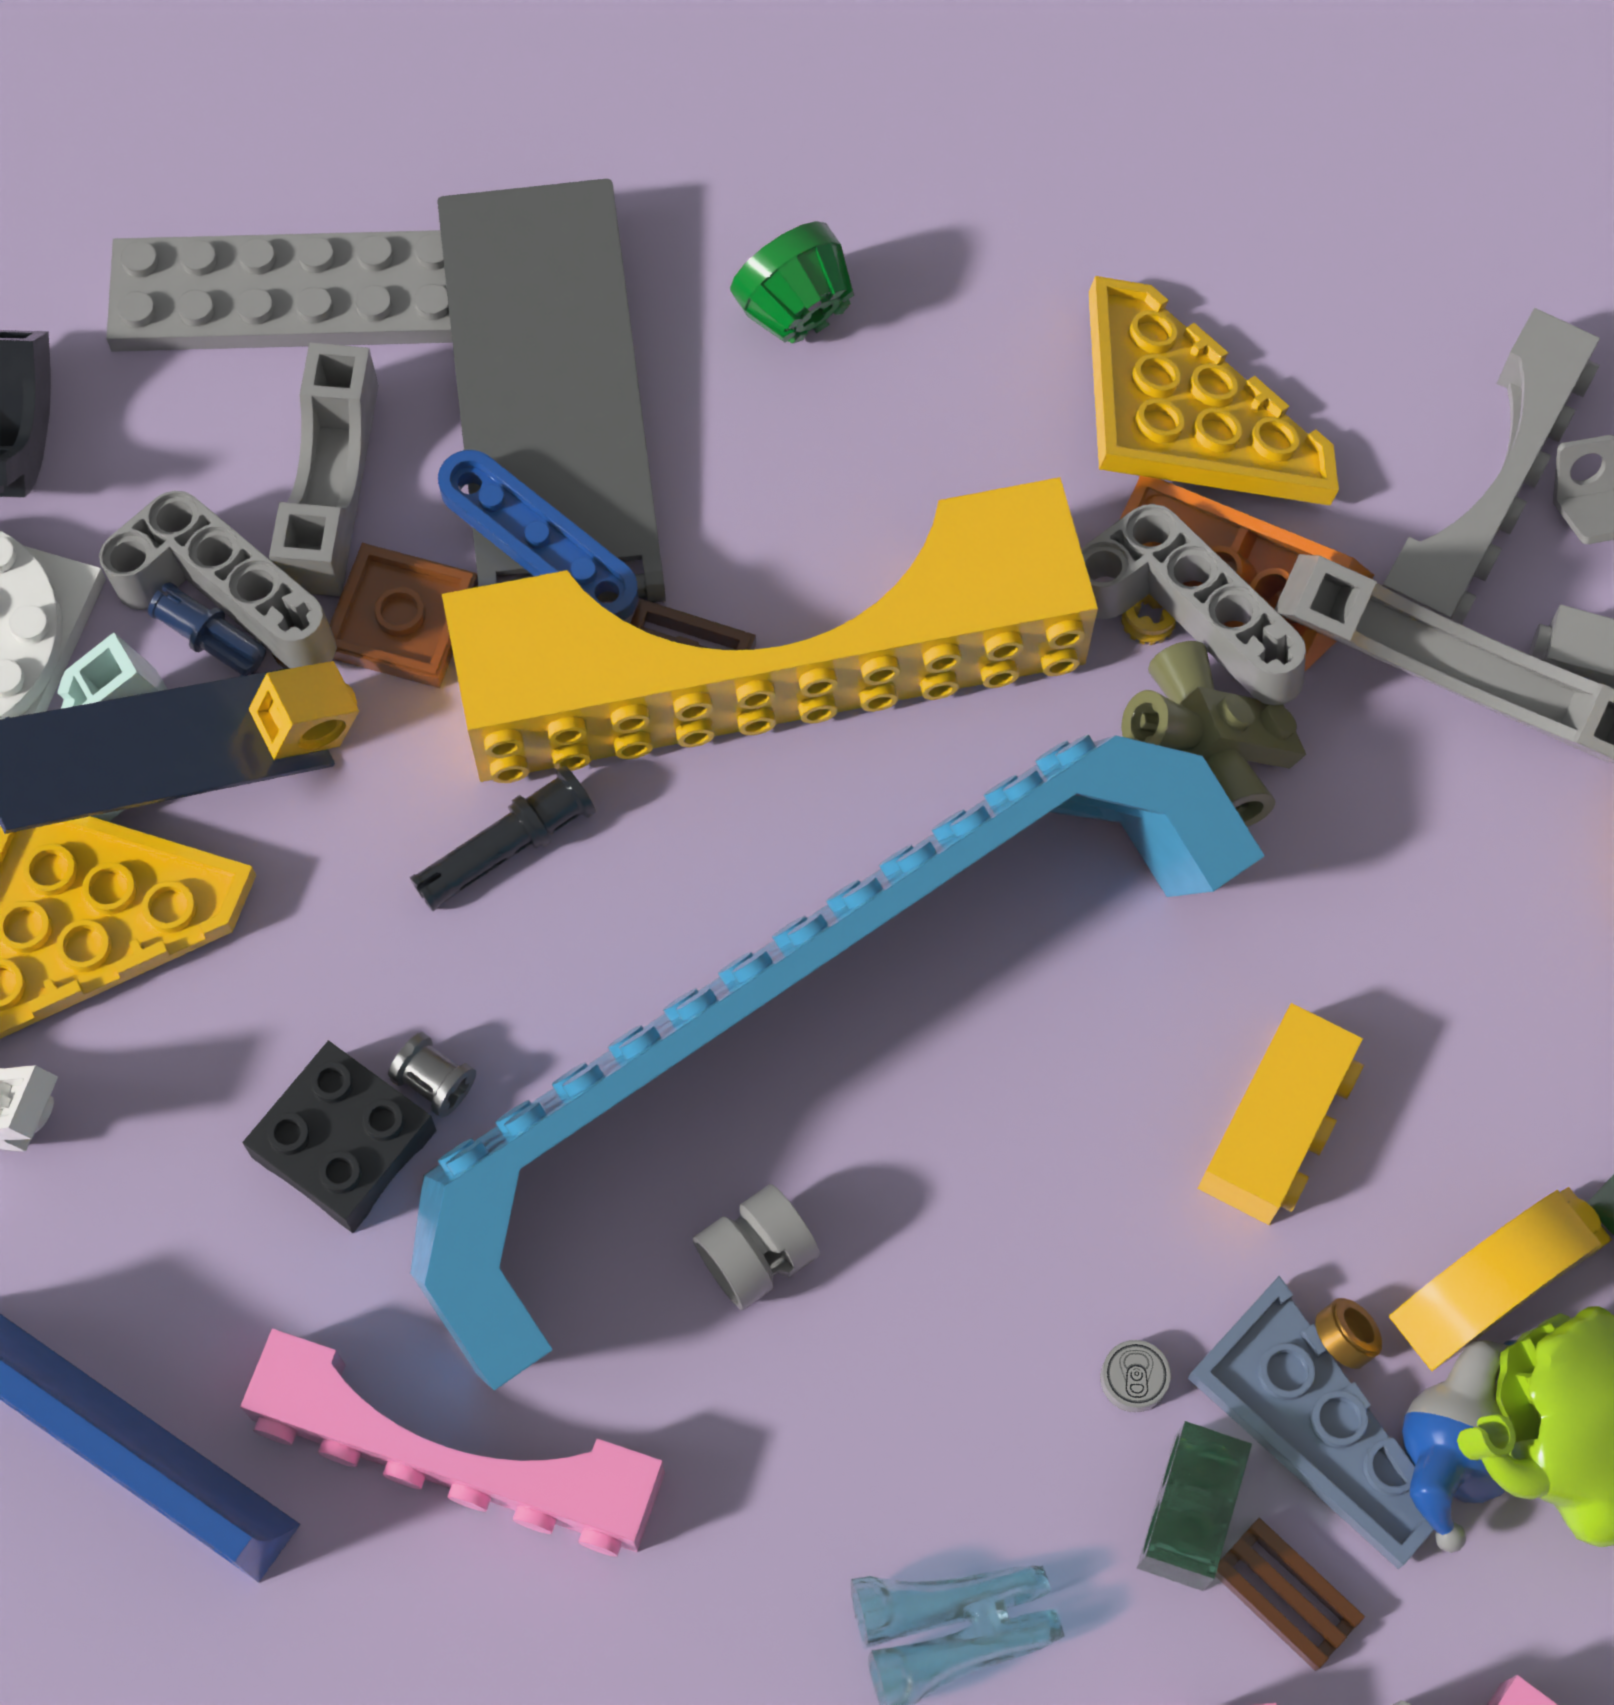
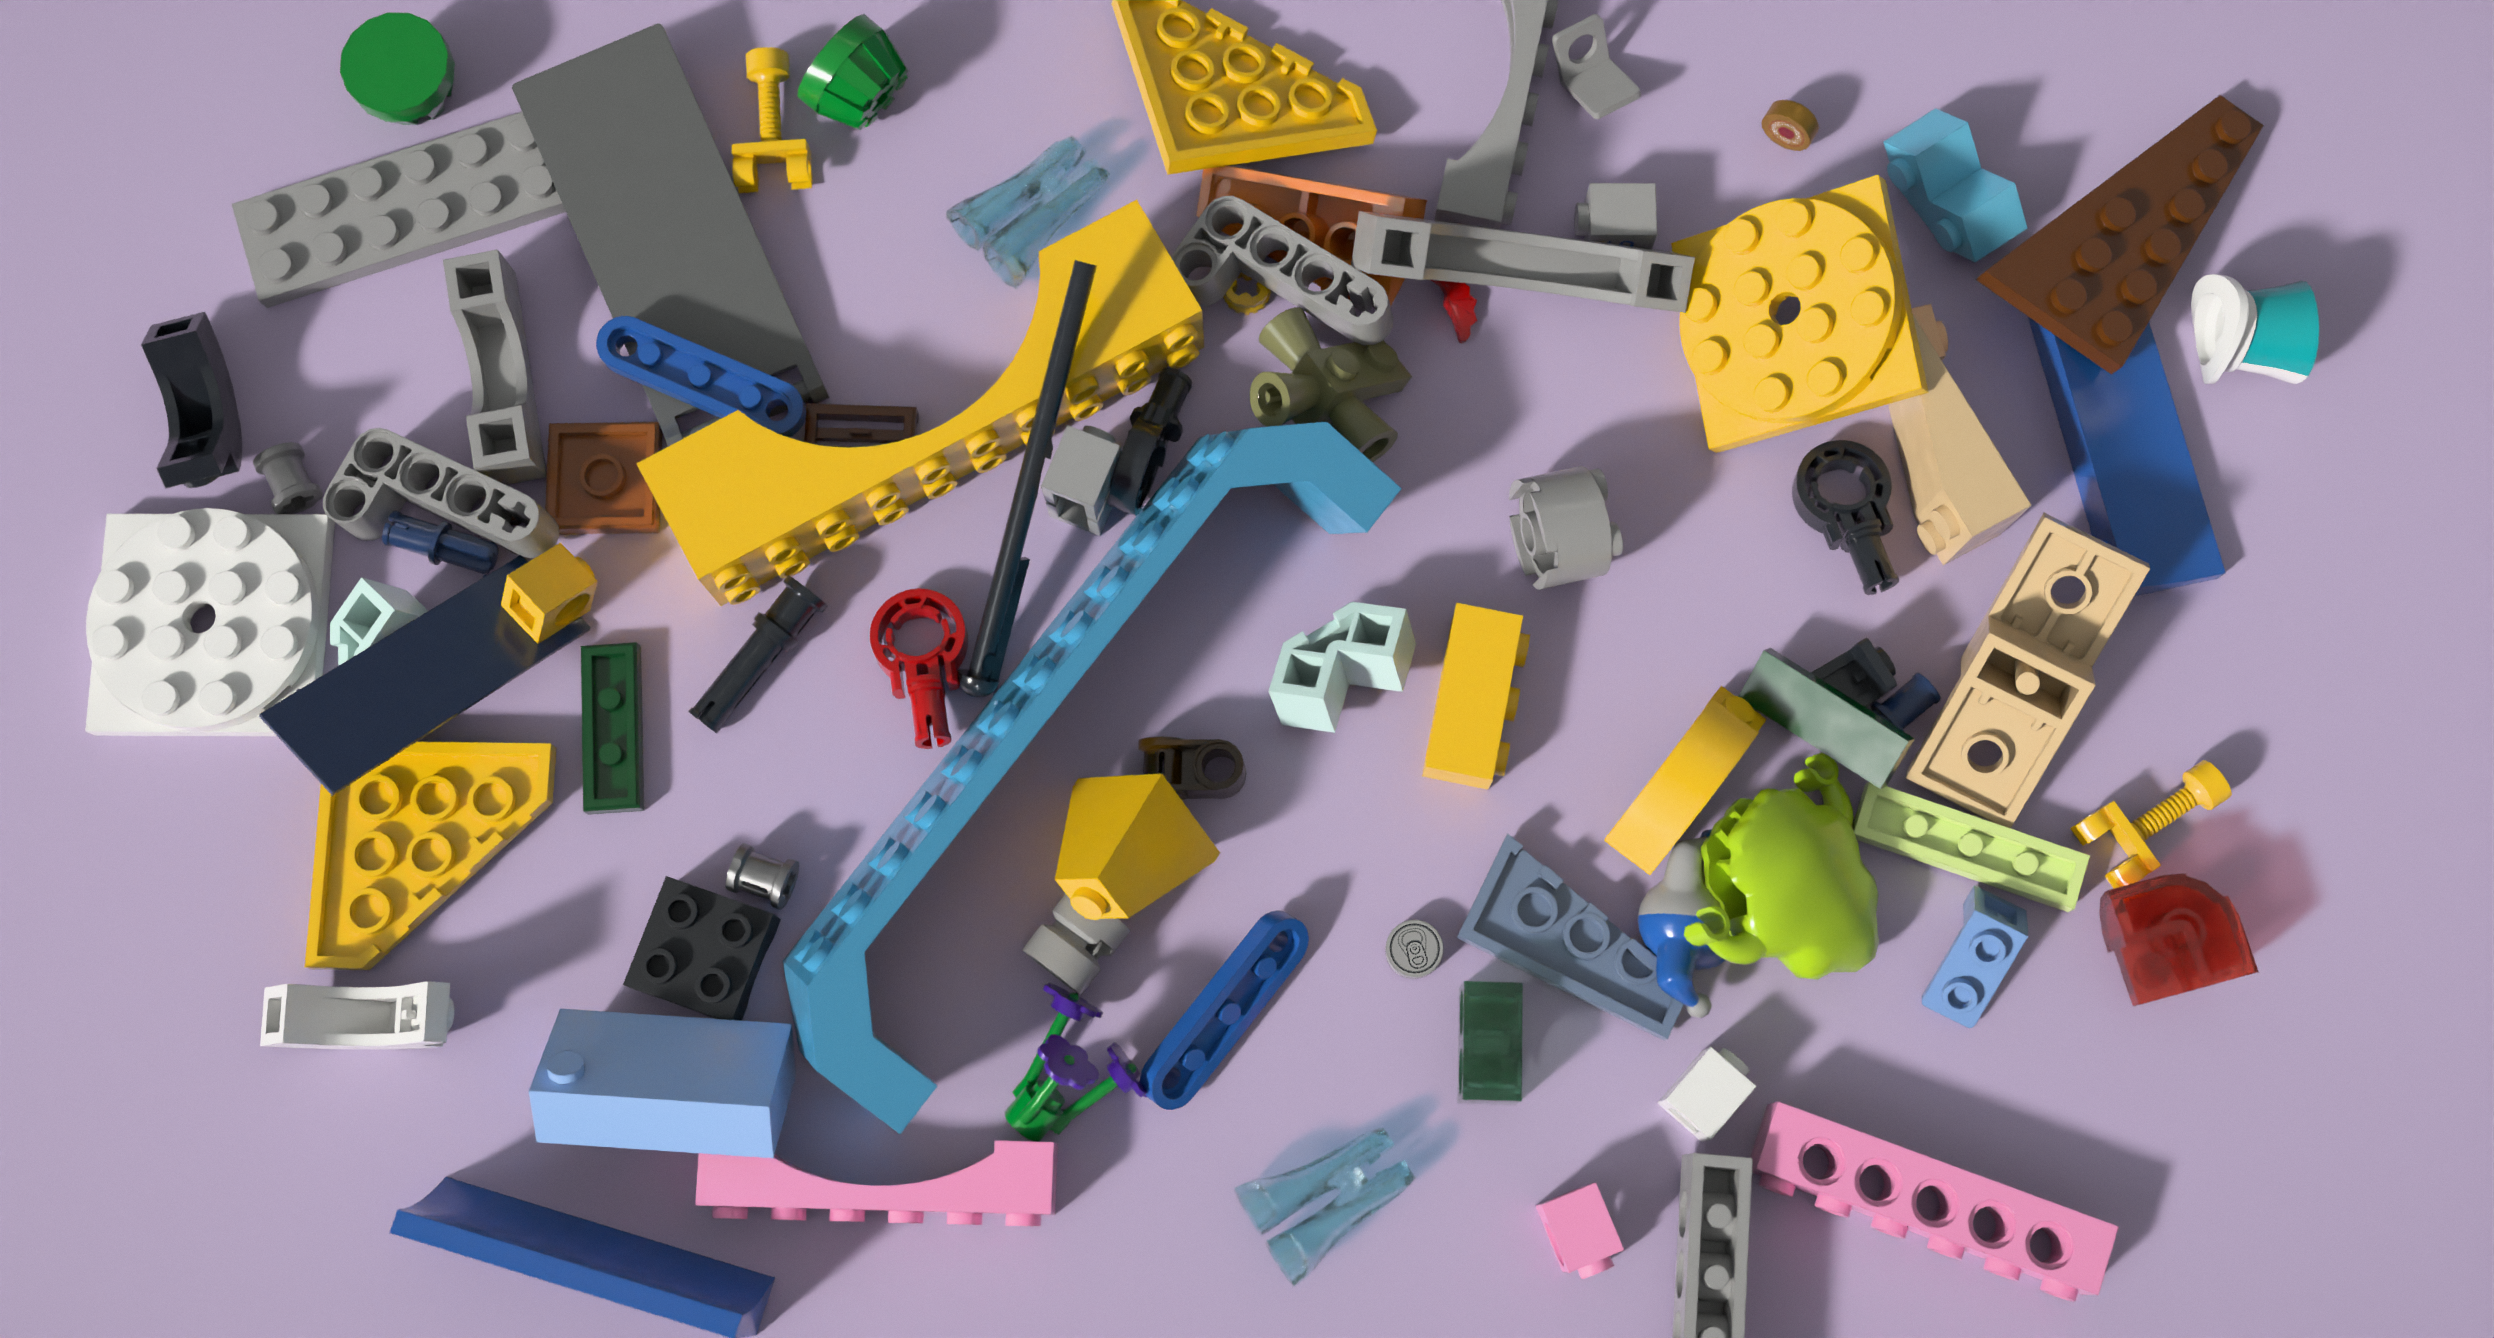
camera: 15 degrees left, 10 degrees up
(72, 519) = (287, 478): none -> flat silver bush
(251, 1260) = (664, 1083): none -> light blue brick
(322, 874) = (612, 728): none -> dark green tile
(328, 153) = (398, 68): none -> green piece
(656, 1413) = (1039, 1102): none -> plant
(679, 907) = (926, 690): none -> red pin
(707, 258) = (769, 68): none -> yellow bar
(806, 824) = (1010, 567): none -> black bar
(848, 1152) = (1128, 845): none -> yellow slope
(899, 1376) = (1224, 1010): none -> blue plate
(915, 754) = (1081, 478): none -> light grey piece
(933, 1098) = (1187, 762): none -> dark brown piece
(937, 464) = (1016, 246): none -> clear light blue piece
(994, 739) = (1147, 441): none -> black pin
(1167, 1022) = (1359, 647): none -> light aqua brick
(1329, 1596) = (1626, 1109): reddish brown tile -> none
(1349, 1333) = (1575, 863): pearl gold tile -> none
(1377, 692) = (1459, 306): none -> red piece
(1434, 956) = (1564, 526): none -> light grey brick
(1435, 1643) = (1708, 1092): none -> white brick

